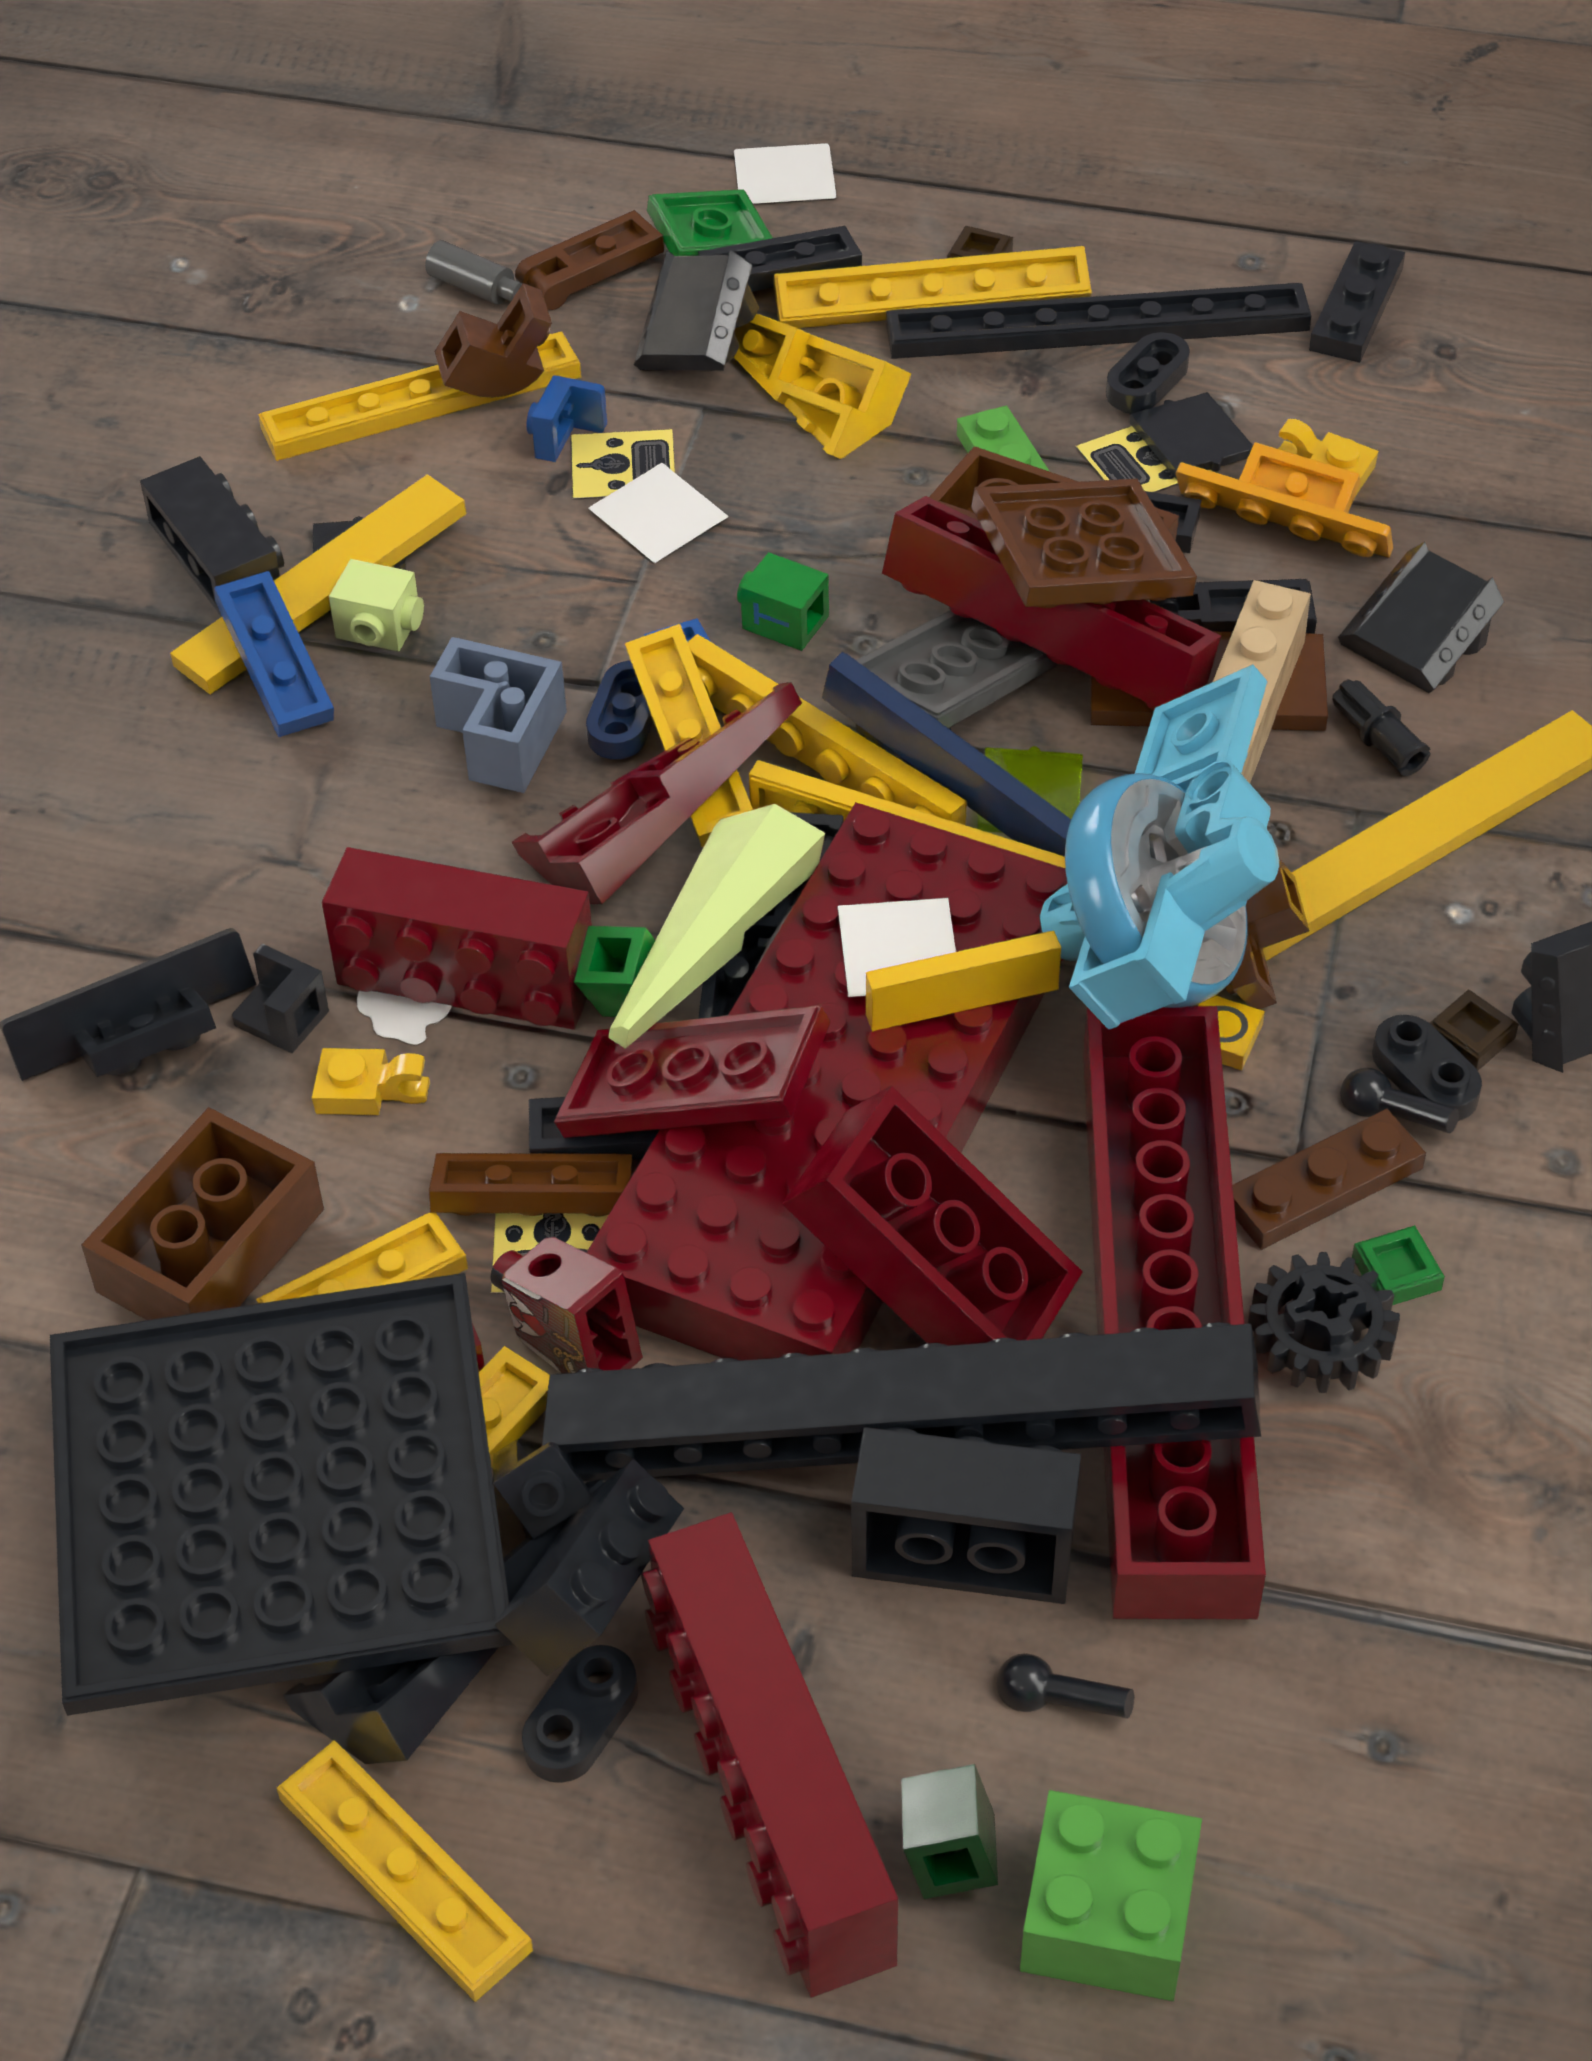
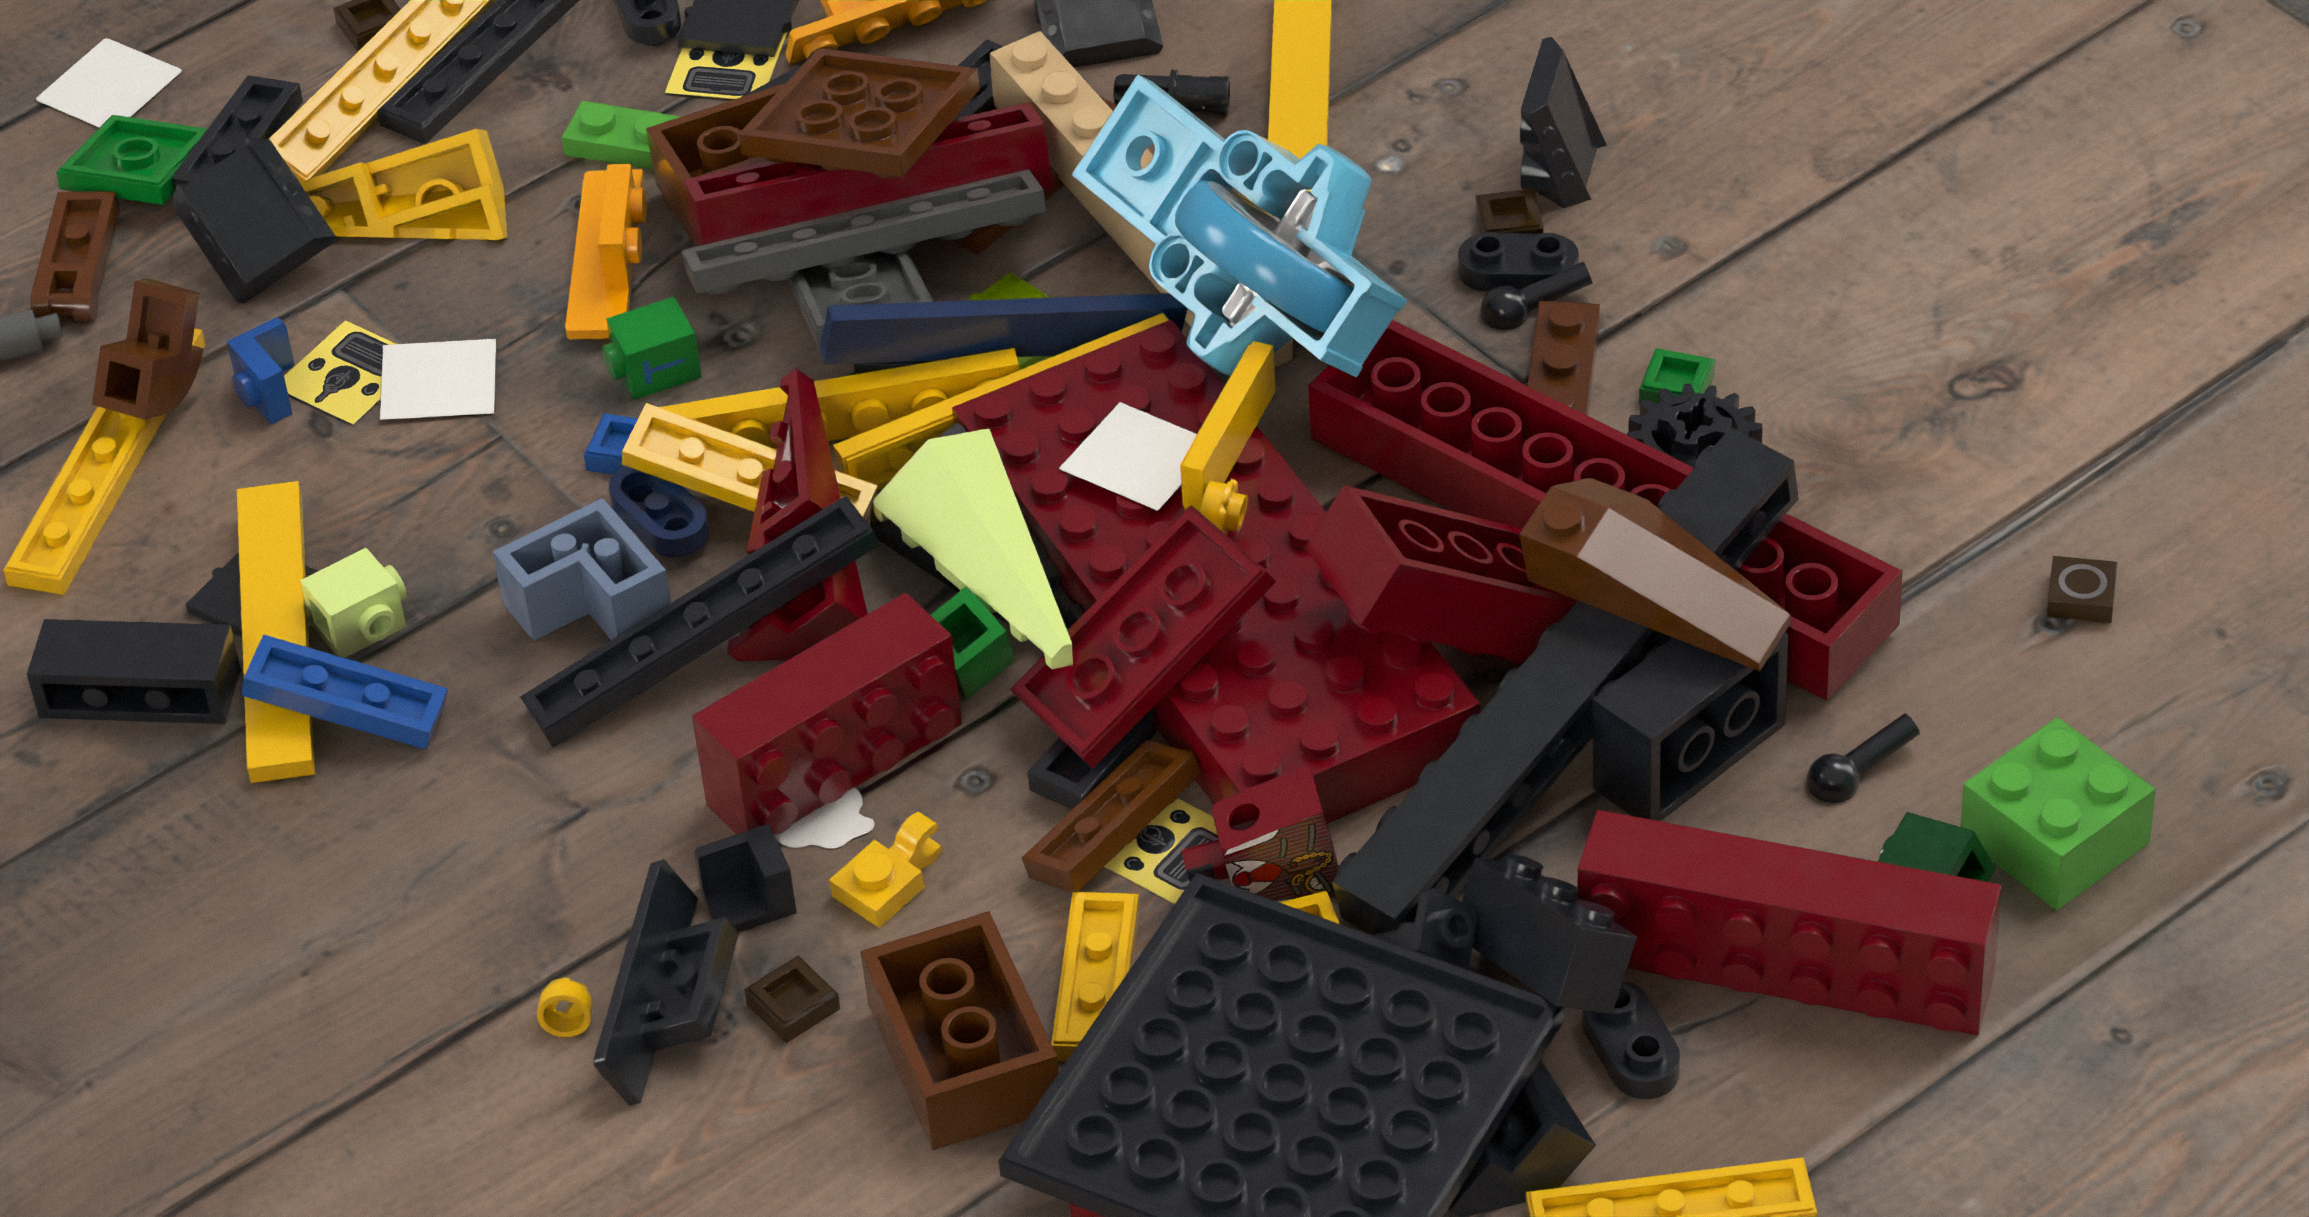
camera: 50 degrees left, 5 degrees down
(71, 970) = (577, 1013): none -> yellow hinge
(185, 1098) = (792, 999): none -> dark brown tile
(510, 800) = (699, 621): none -> black tile
(860, 510) = (605, 249): none -> light orange bracket
(871, 1033) = (1224, 505): none -> yellow plate
(998, 634) = (880, 227): none -> dark grey plate
(1034, 1355) = (1648, 570): none -> reddish brown wedge
(1437, 1743) = (2082, 589): none -> dark brown tile

